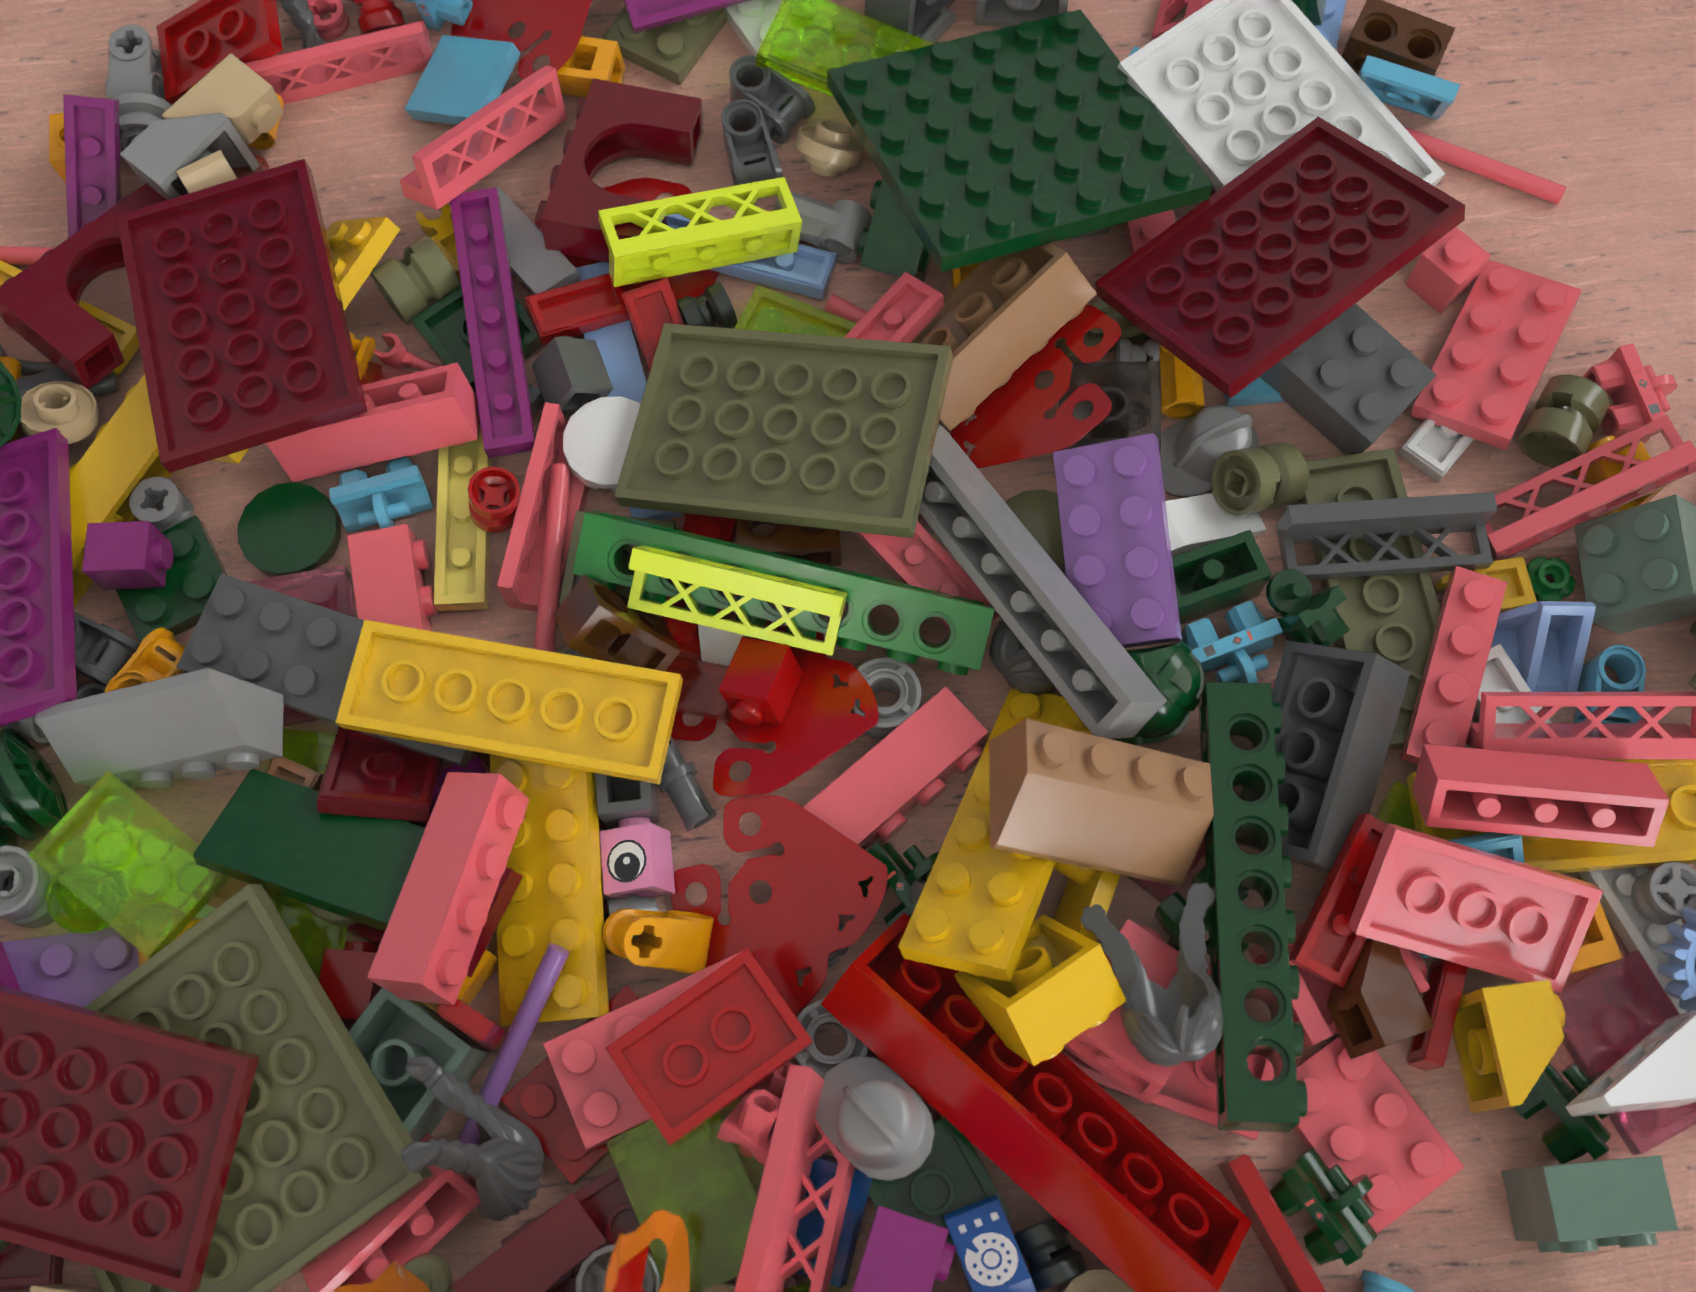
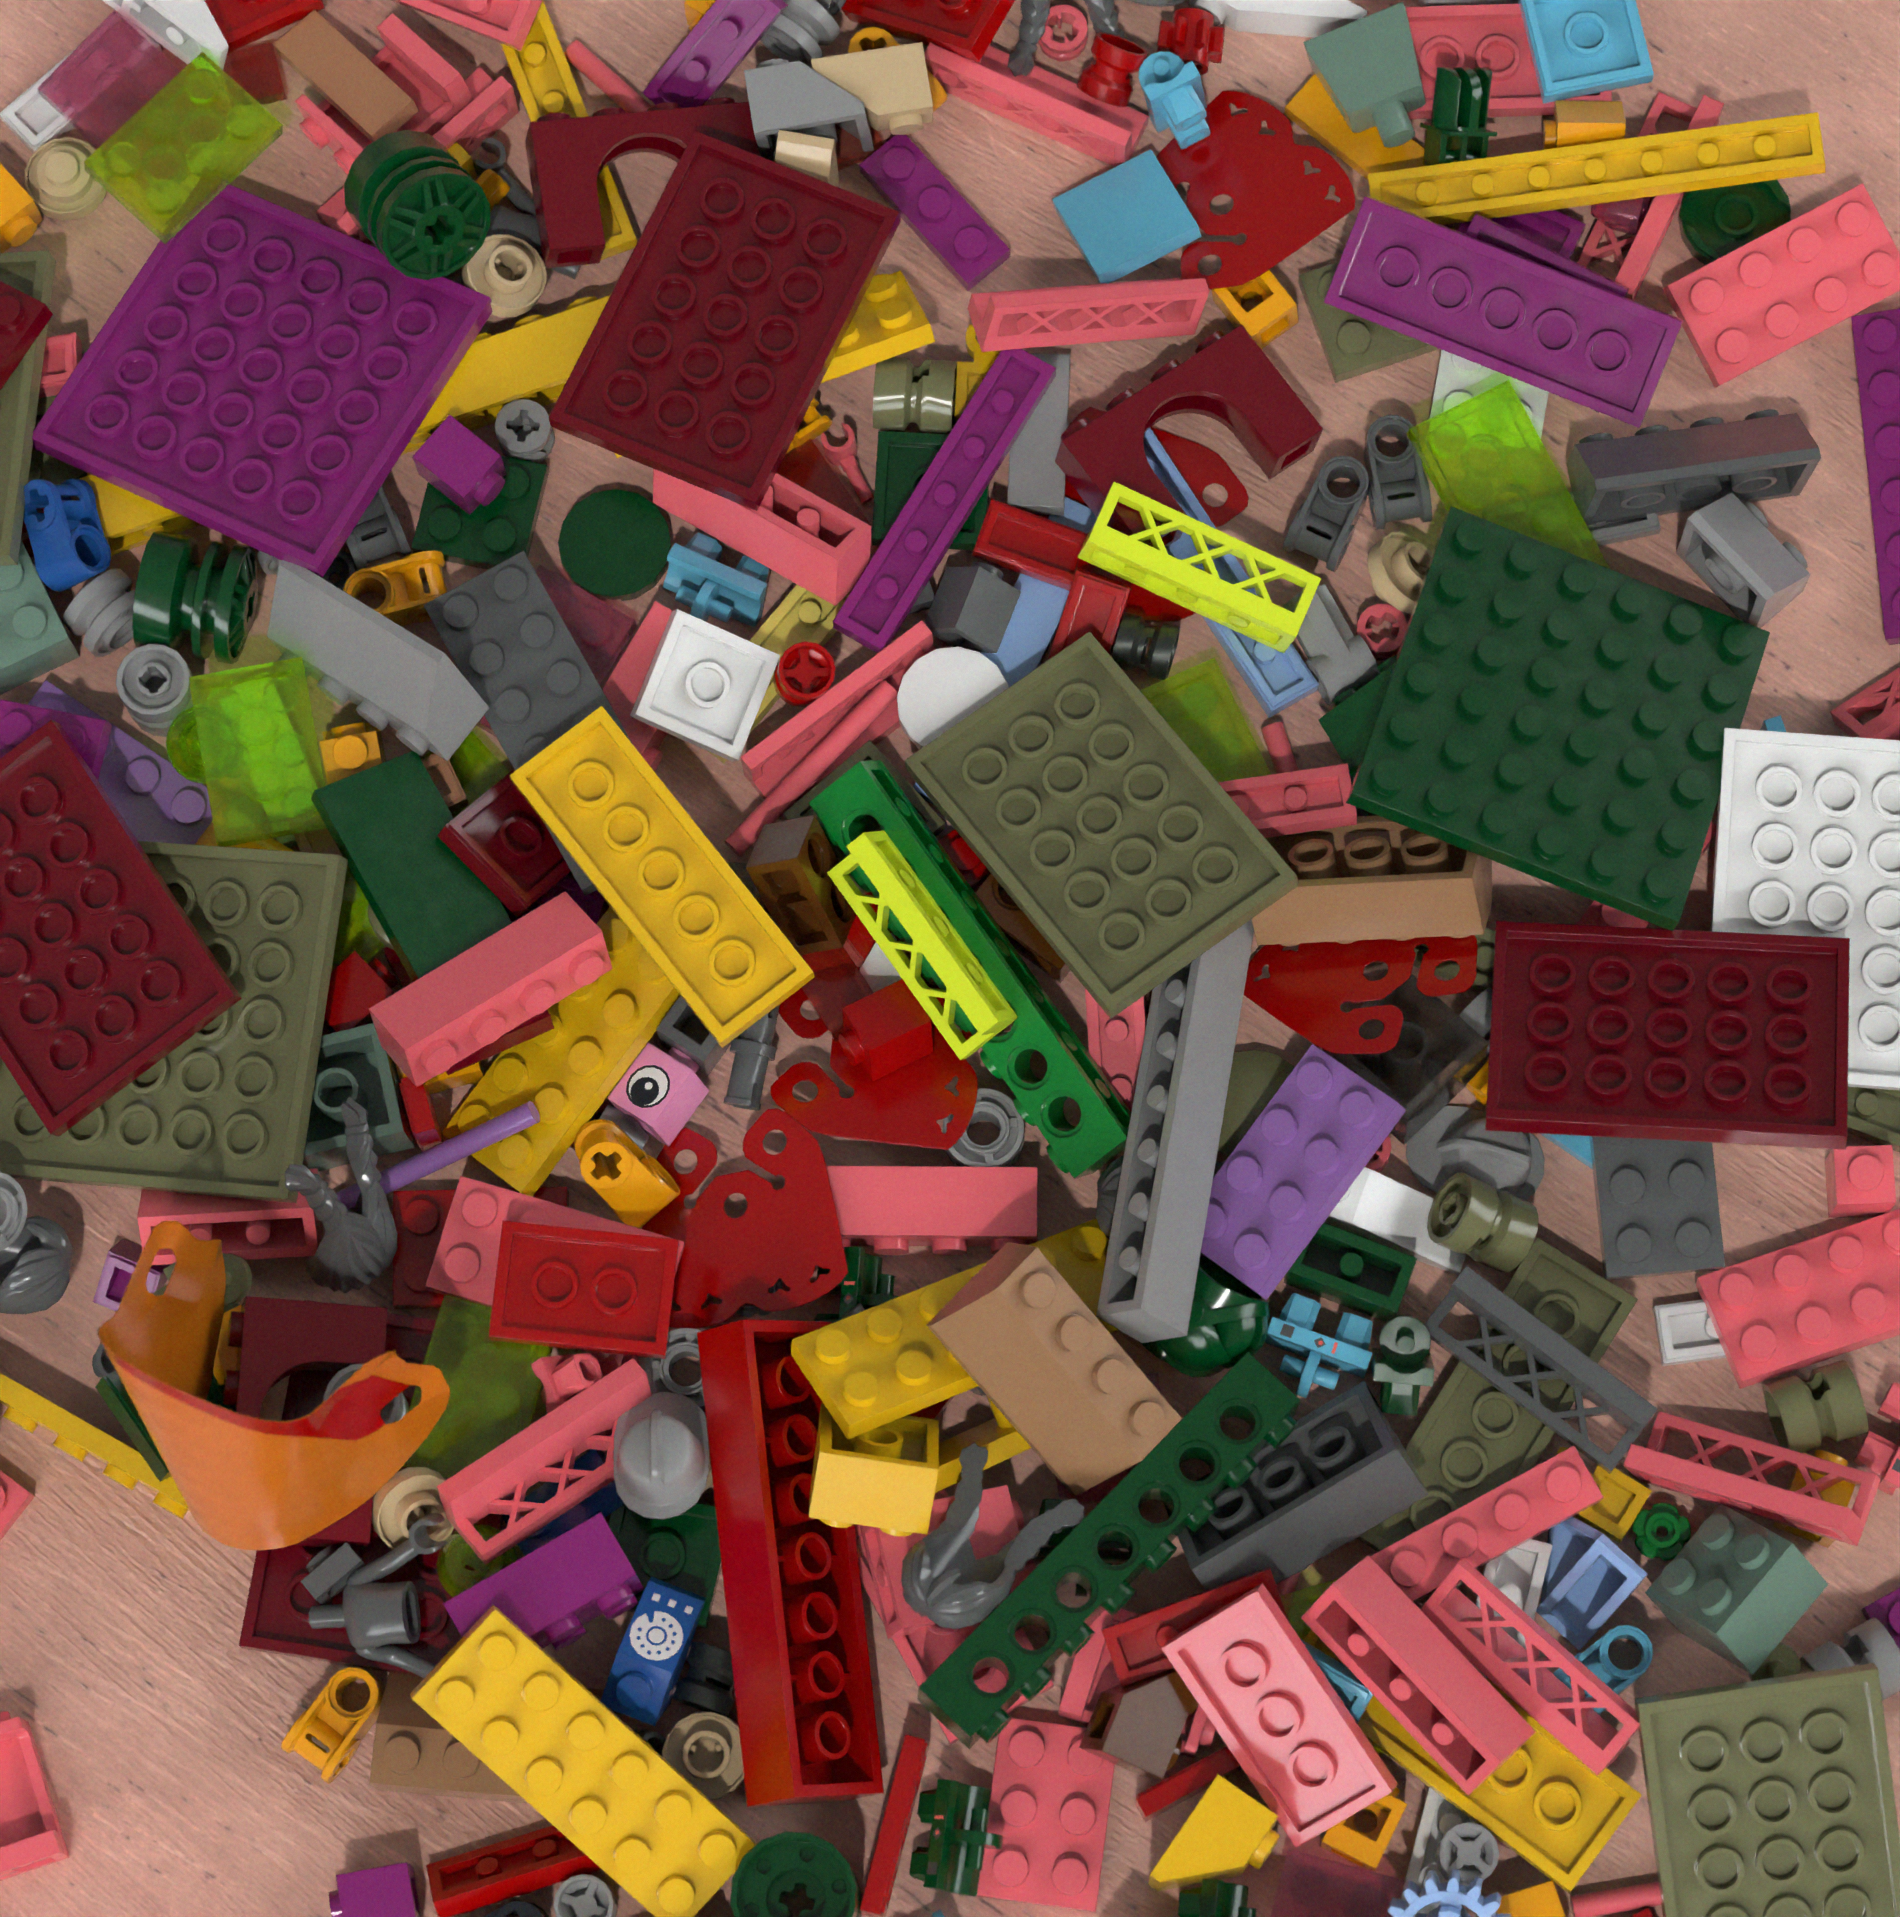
camera: 45 degrees right, 5 degrees up
(201, 808) = (351, 750): none -> light orange brick
(343, 171) = (935, 210): none -> magenta plate
(429, 559) = (705, 685): none -> white plate
(845, 181) = (1376, 615): none -> coral bush

